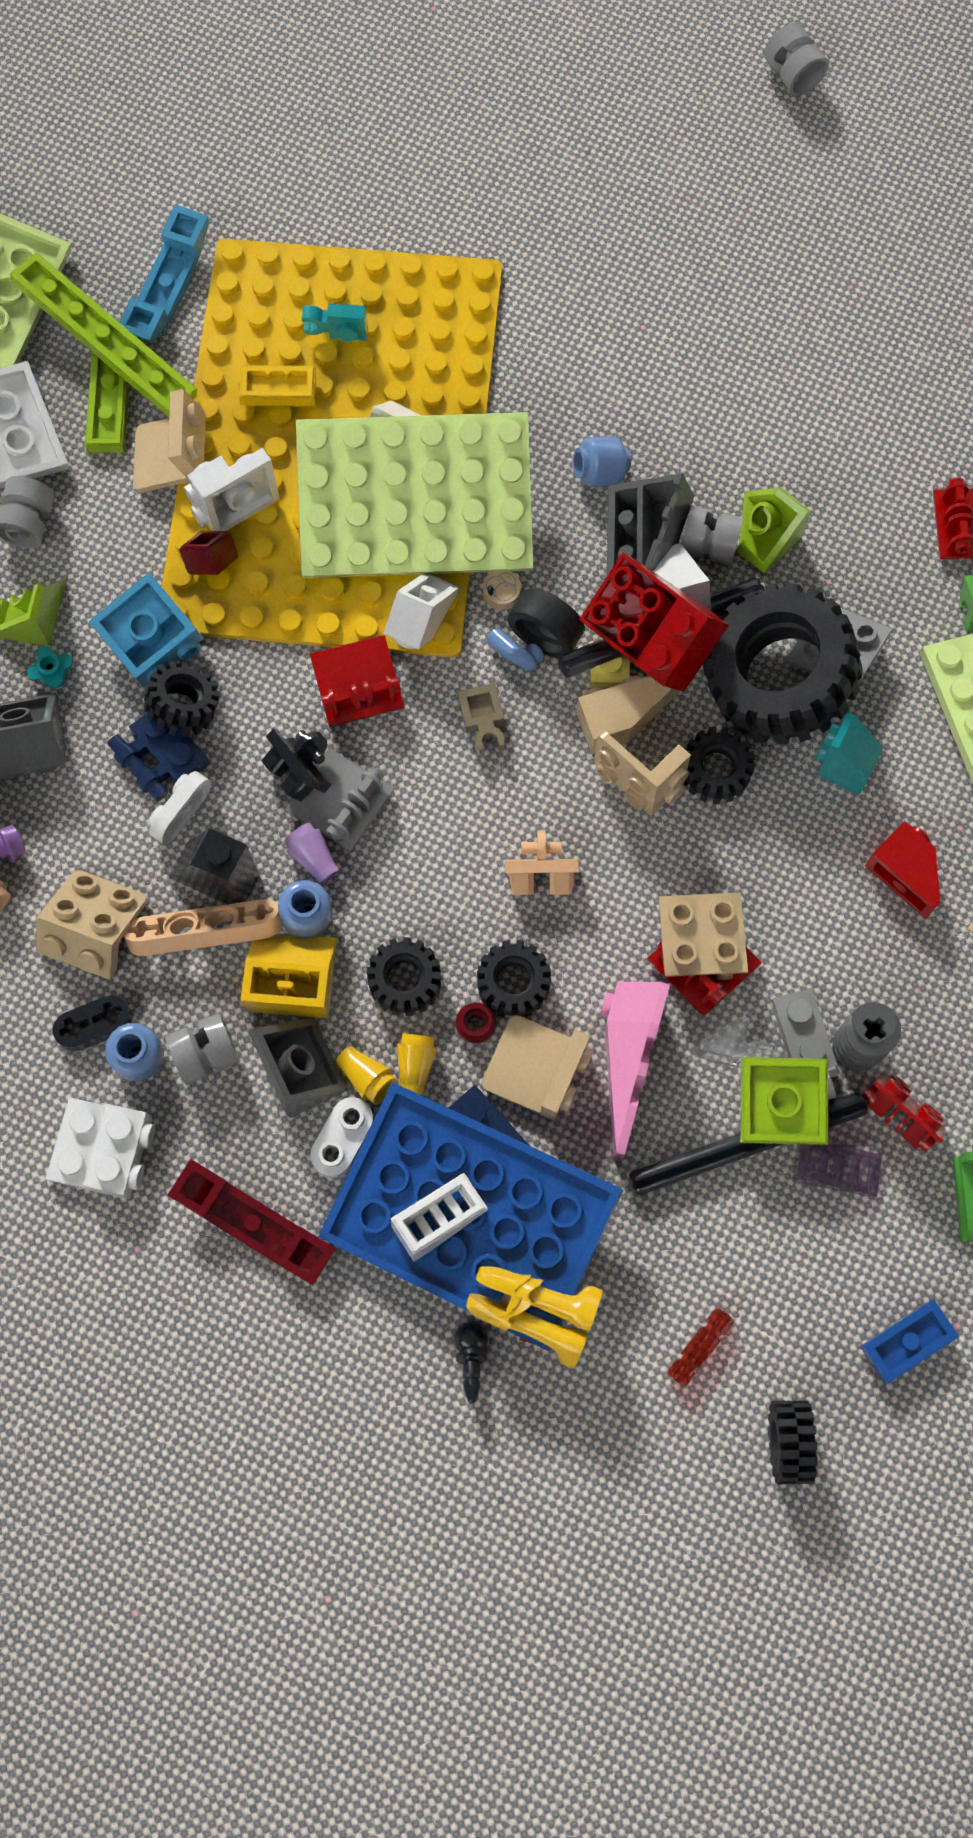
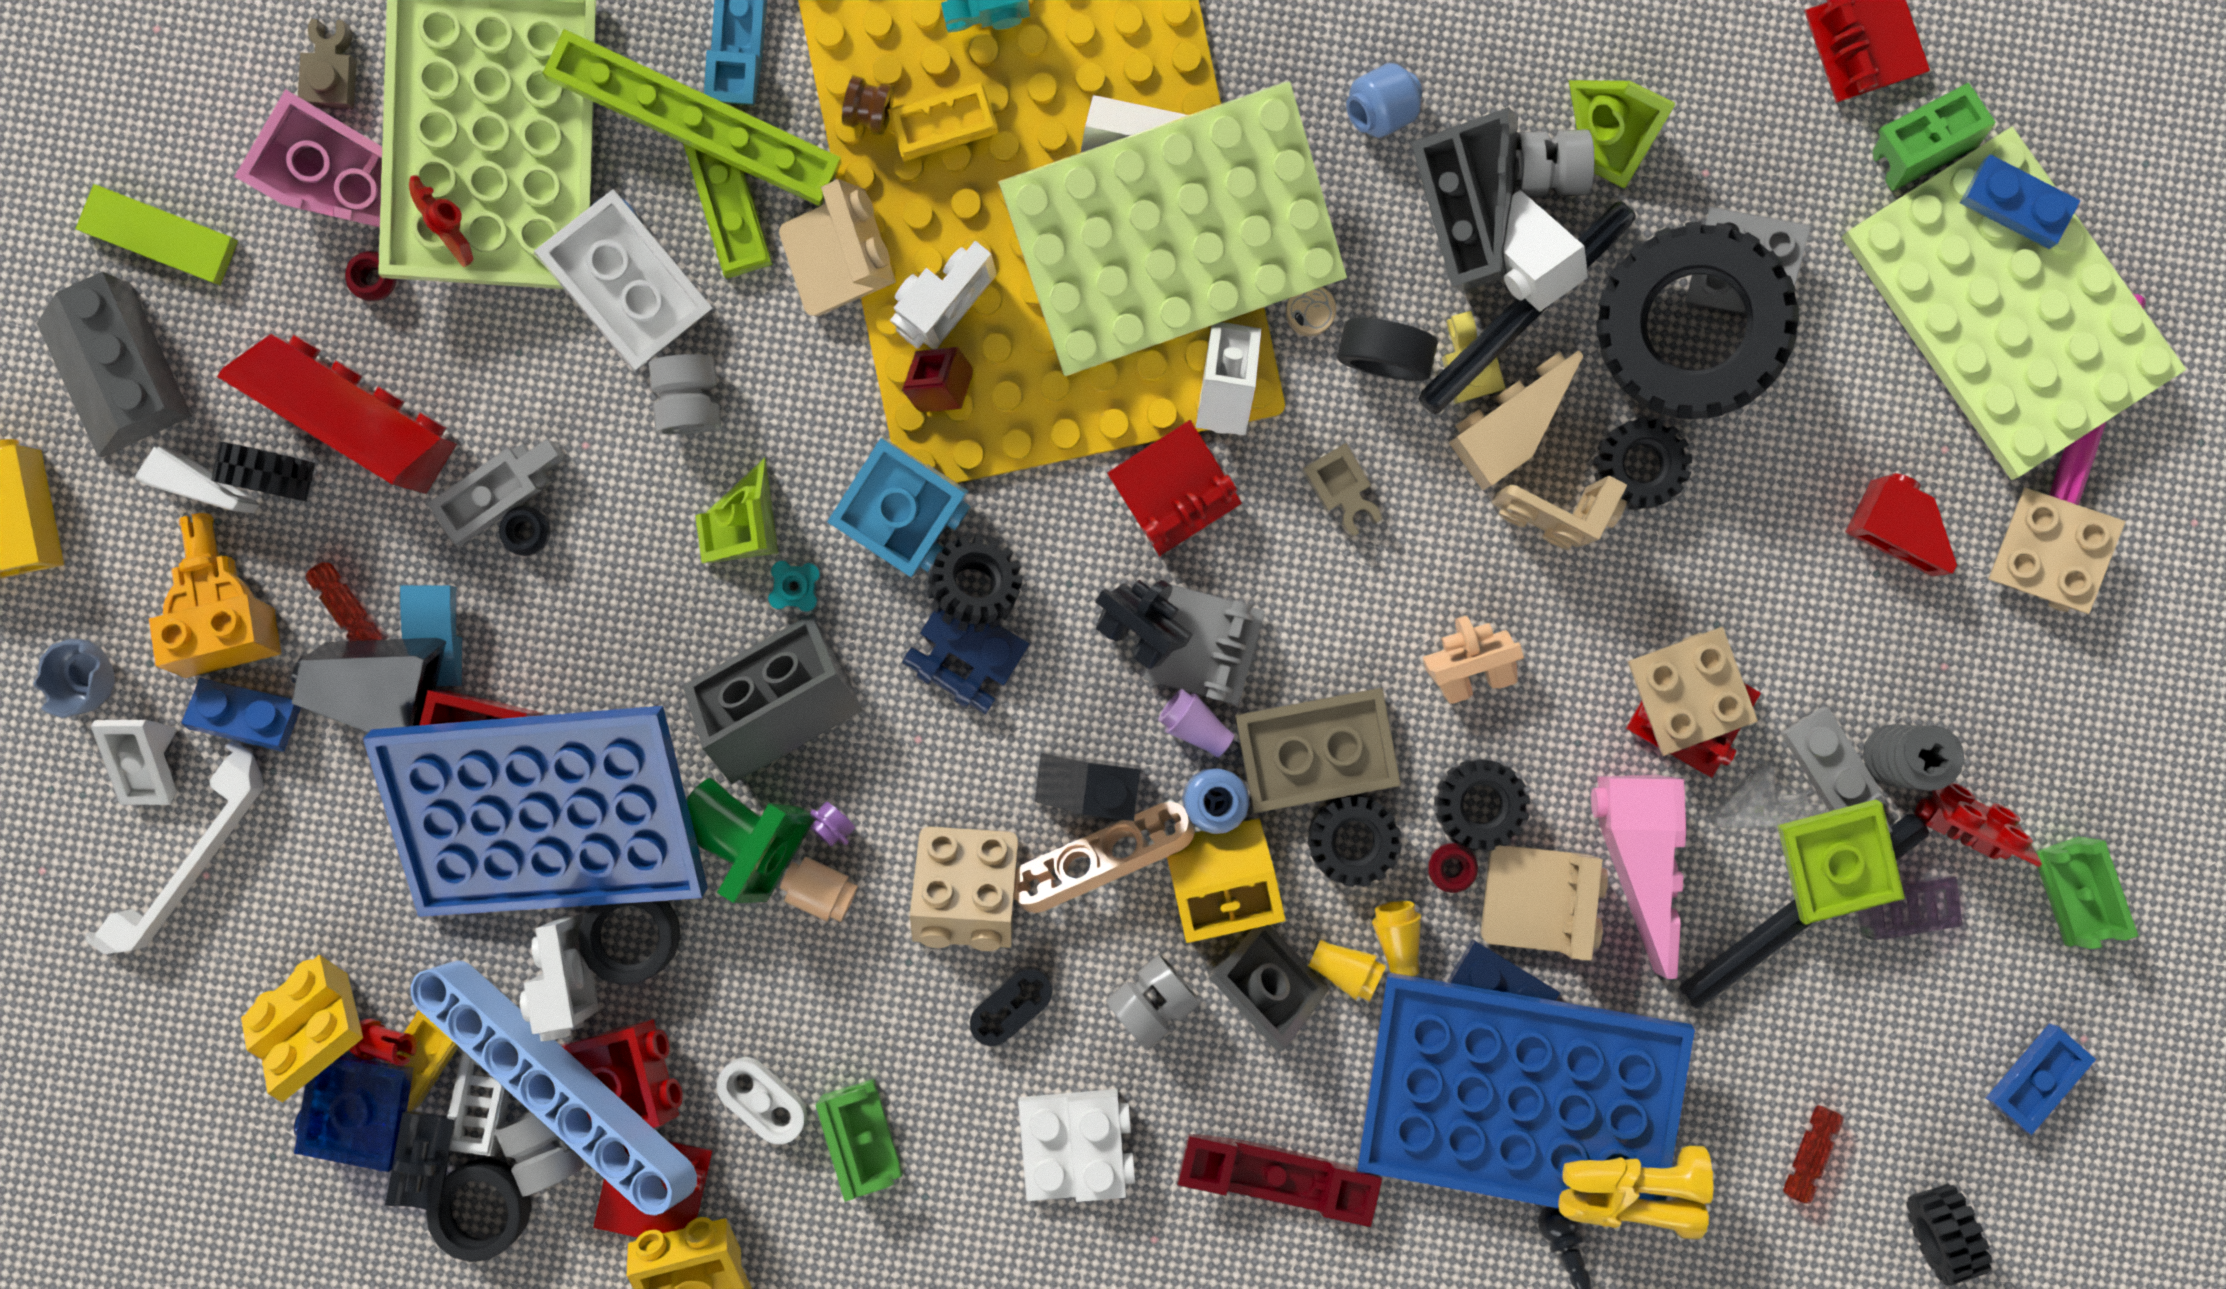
camera: 25 degrees left, 15 degrees up
(124, 1044) = (1081, 1048): medium blue head -> none
(186, 798) = (1010, 737): white plate -> none
(227, 359) = (867, 105): none -> reddish brown wheel
(342, 1136) = (1341, 1047): white plate -> none
(398, 900) = (1317, 750): none -> dark tan plate
(401, 1221) = (1509, 1130): white slope -> none
(515, 653) = (1352, 392): medium blue arm -> none
(653, 623) = (1531, 325): red slope -> none
(849, 754) = (1799, 408): teal slope -> none

